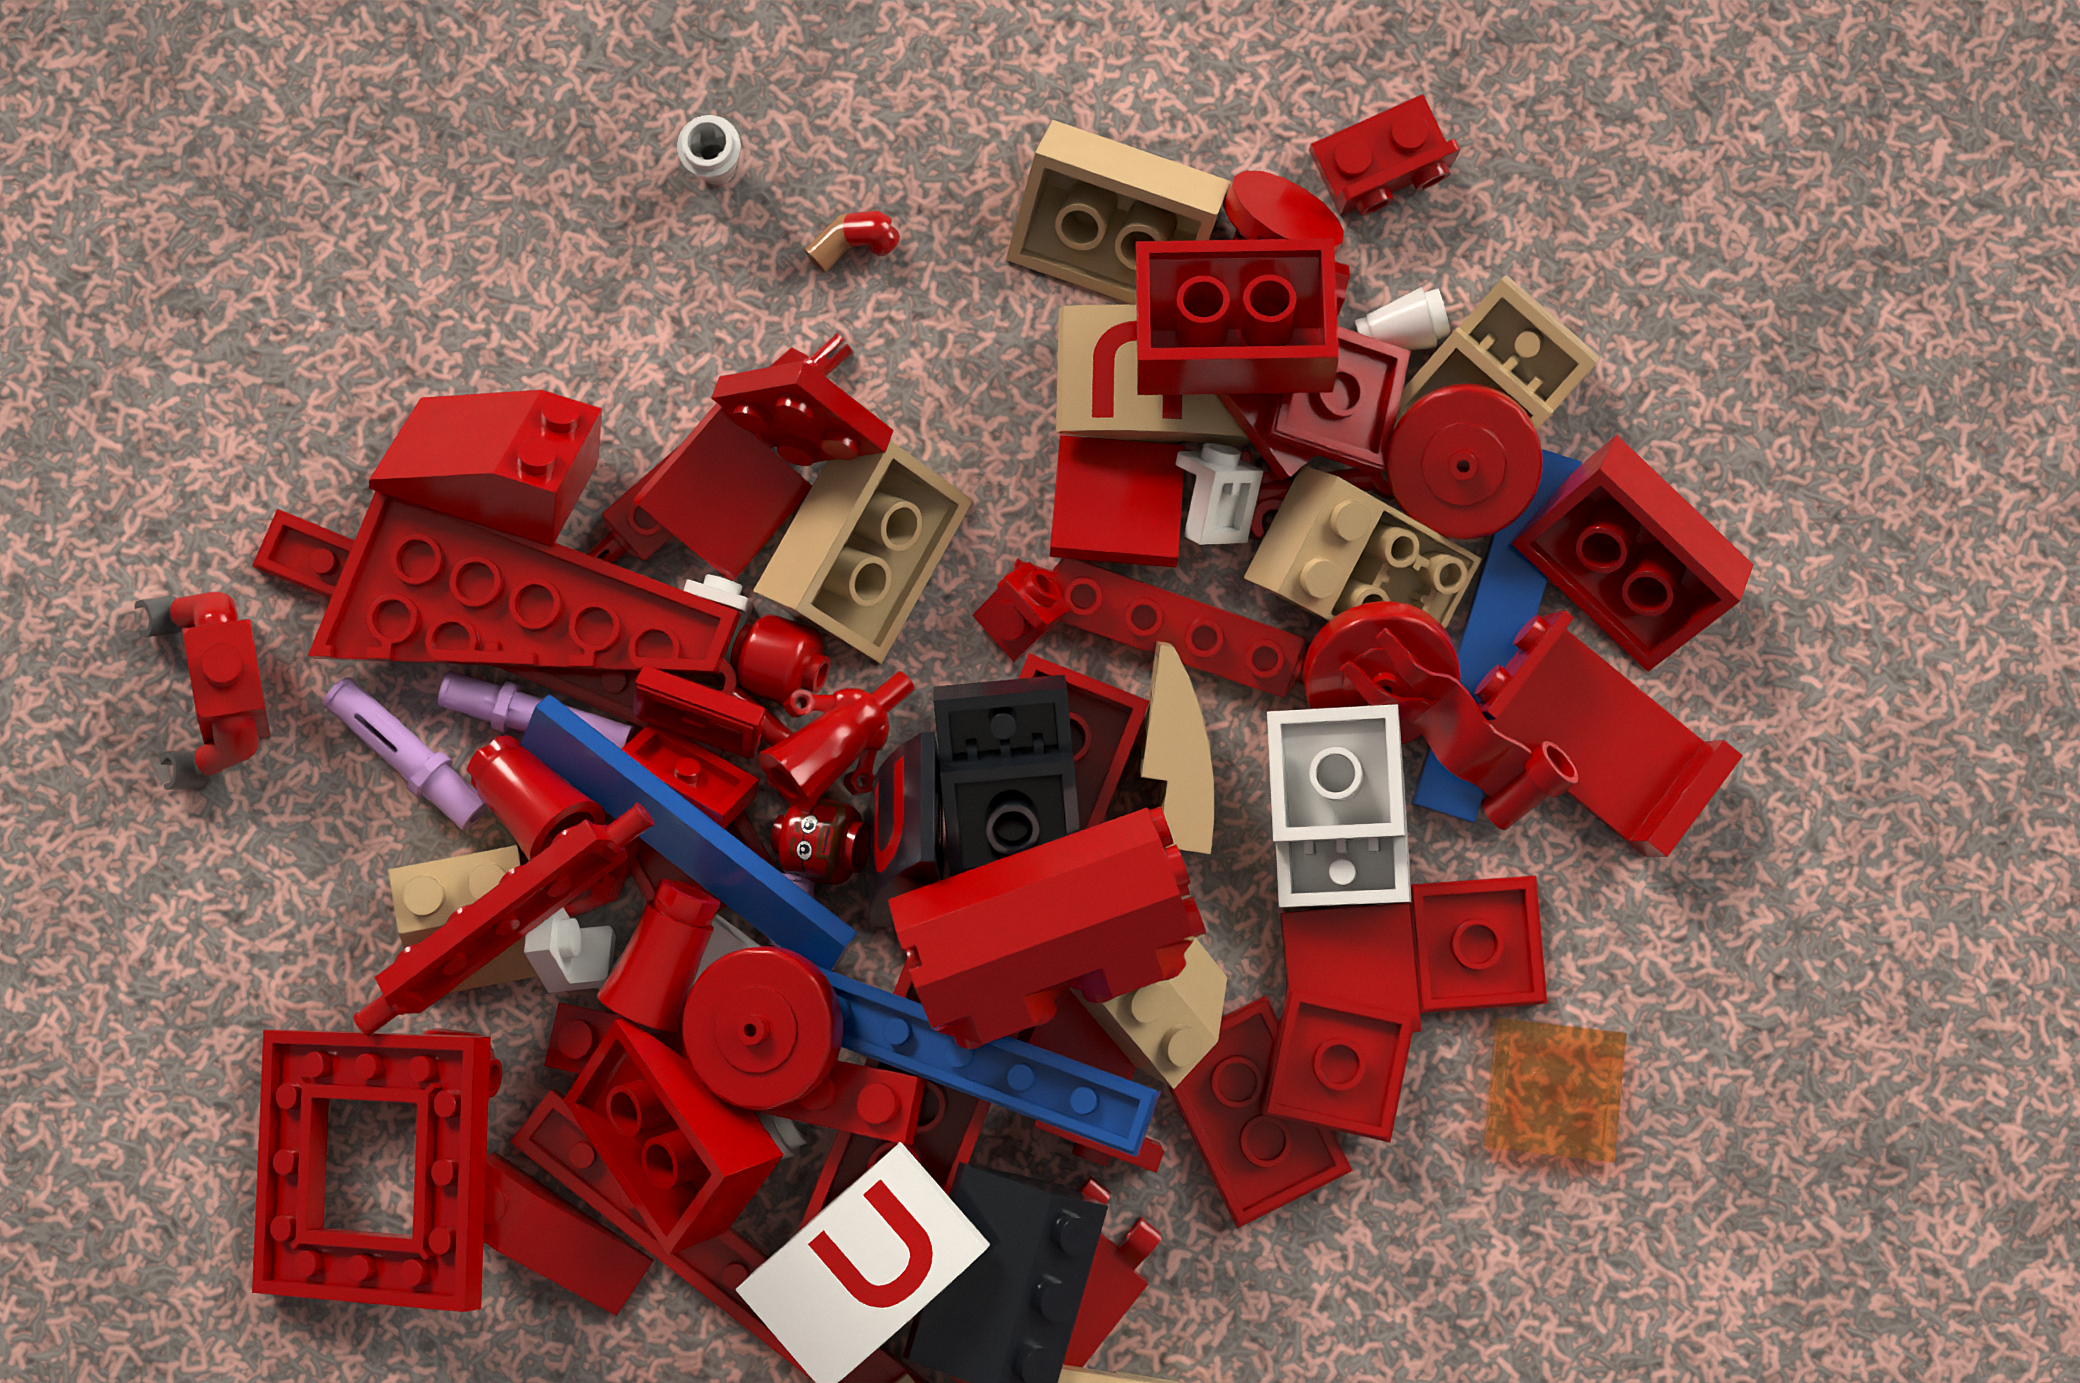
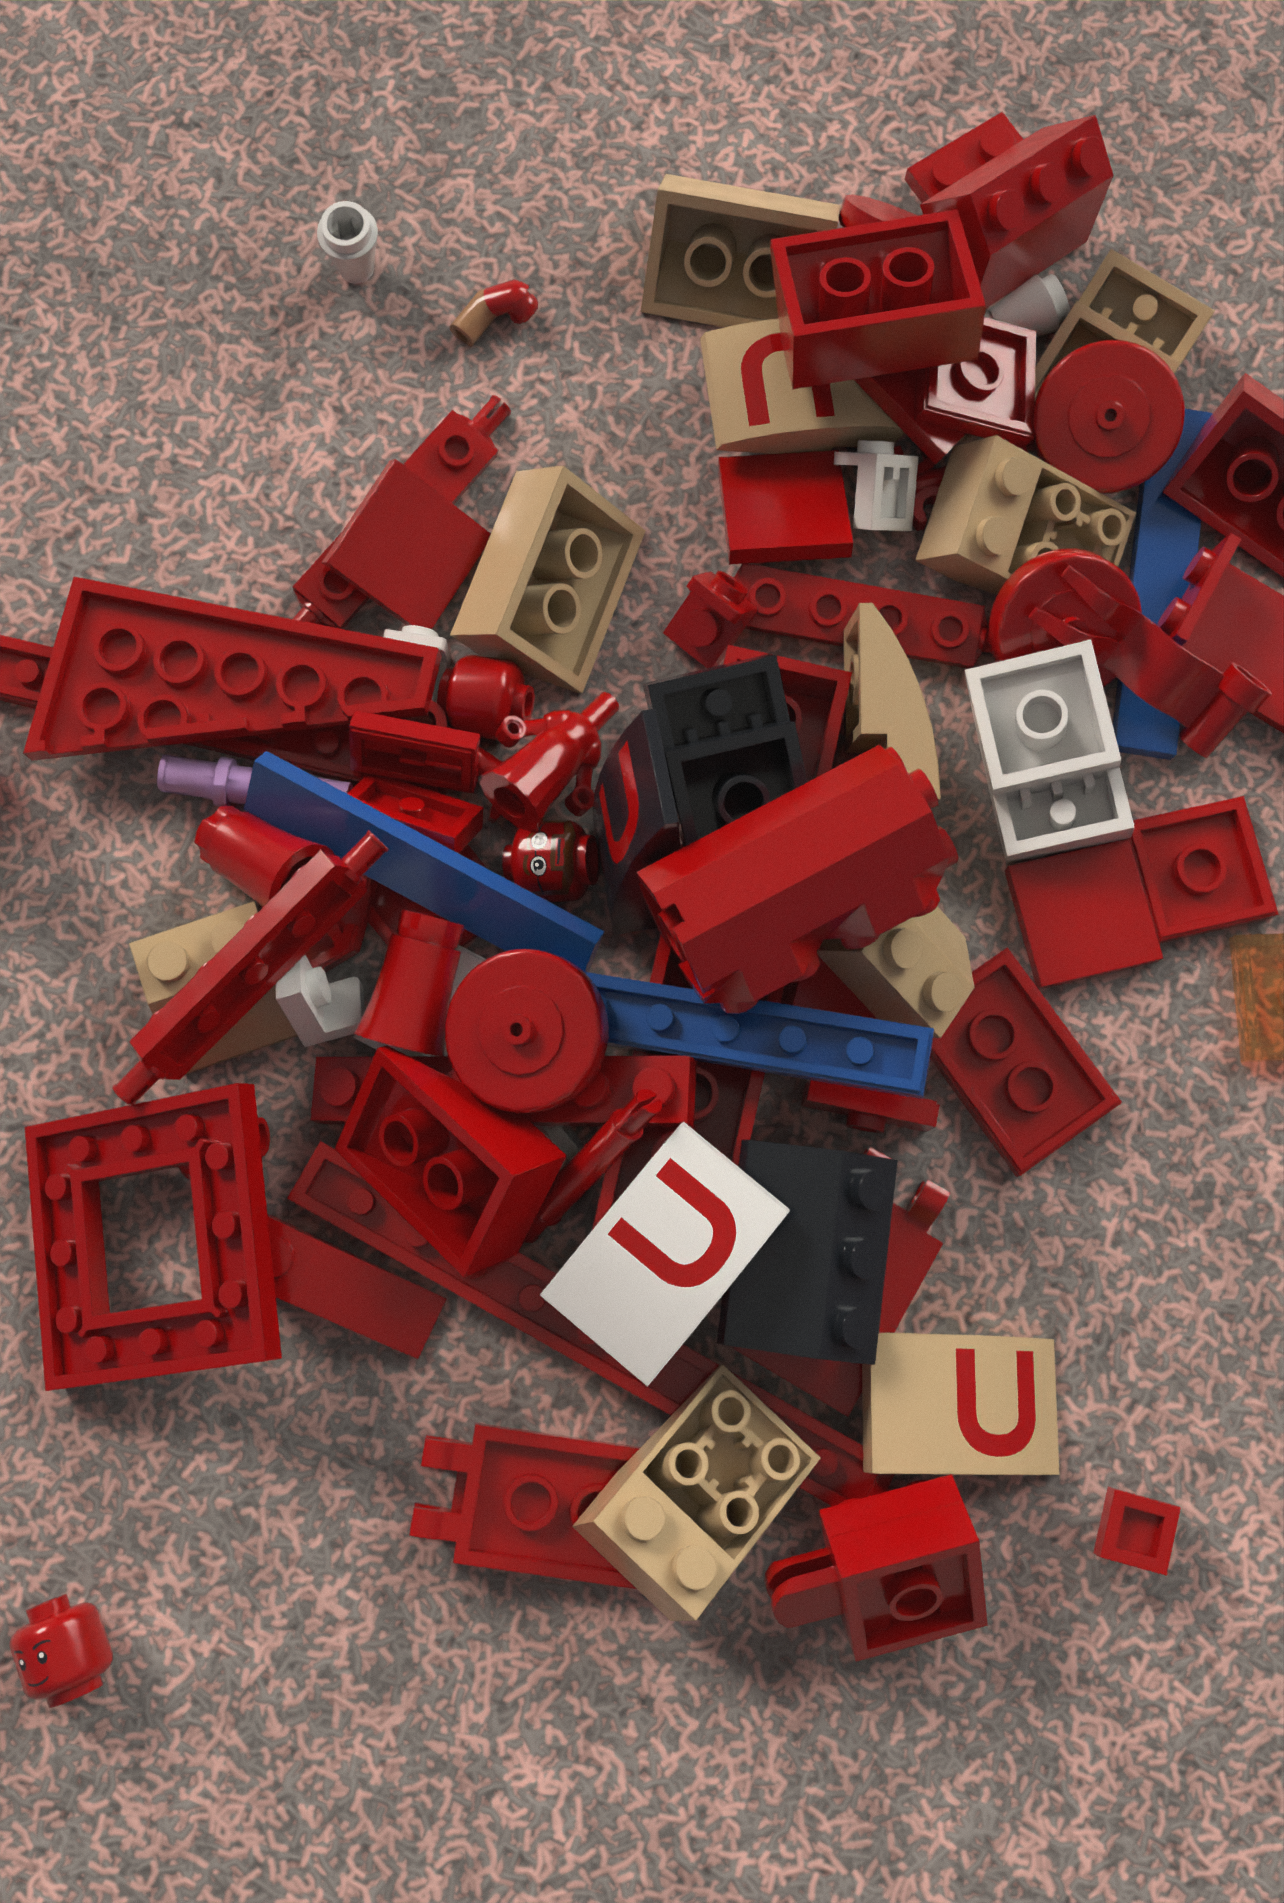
camera: 10 degrees left, 5 degrees down
(425, 771) = (154, 853): lavender pin -> none
(495, 459) = (187, 545): red slope -> none
(801, 414) = (474, 450): red plate -> none
(813, 1158) = (595, 1159): none -> red piece
(1338, 1064) = (1091, 999): red tile -> none
(1413, 222) = (1030, 203): none -> red slope

